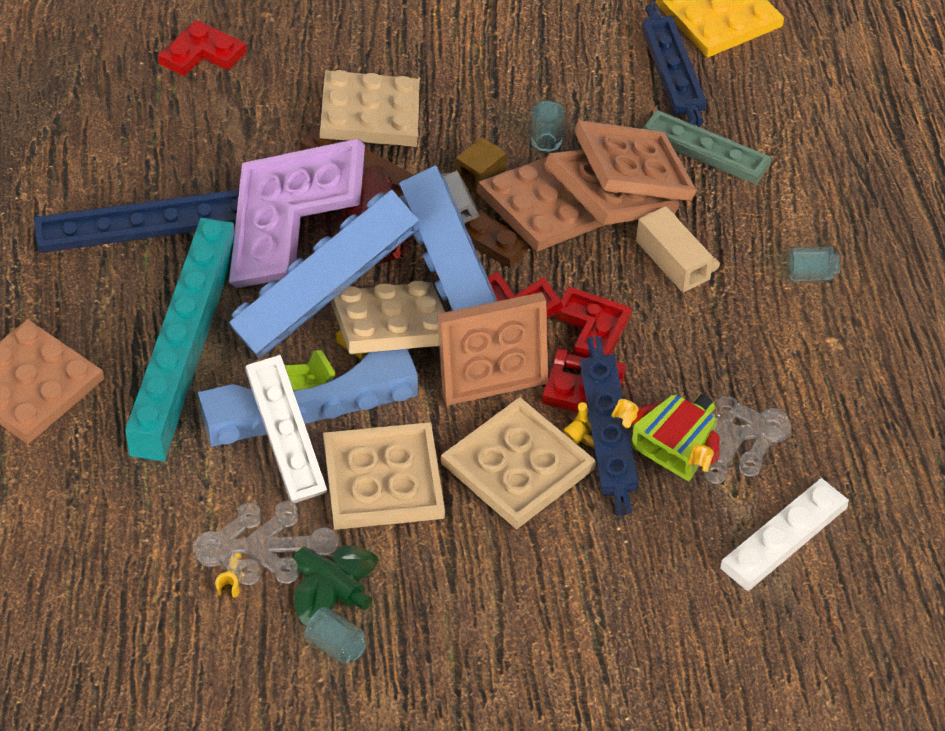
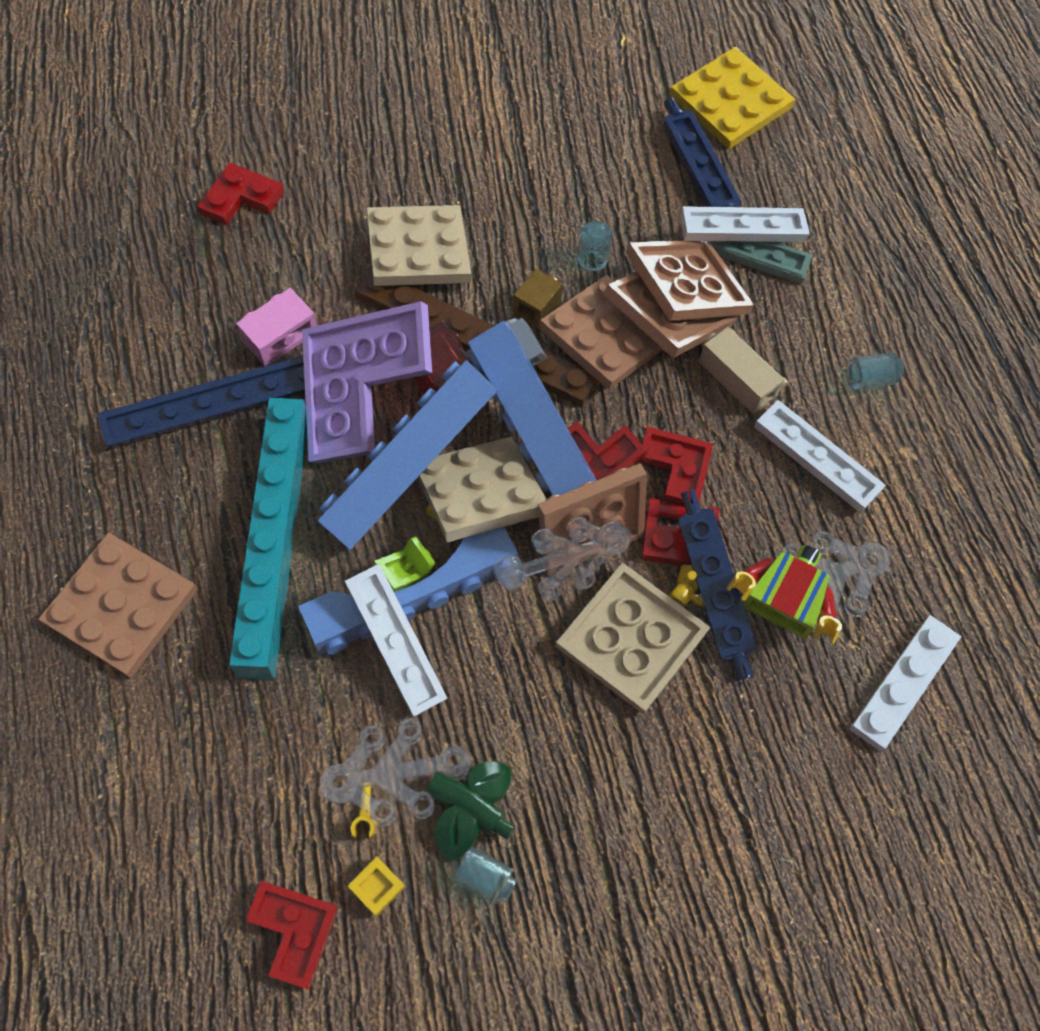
camera: 10 degrees left, 15 degrees up
(155, 654) = (304, 928): none -> red plate
(216, 164) = (276, 326): none -> bright pink brick
(231, 632) = (376, 886): none -> yellow plate
(383, 476) = (501, 672): tan plate -> none
(465, 379) = (607, 540): none -> clear plant
(702, 120) = (744, 224): none -> white plate
(739, 332) = (819, 456): none -> white plate

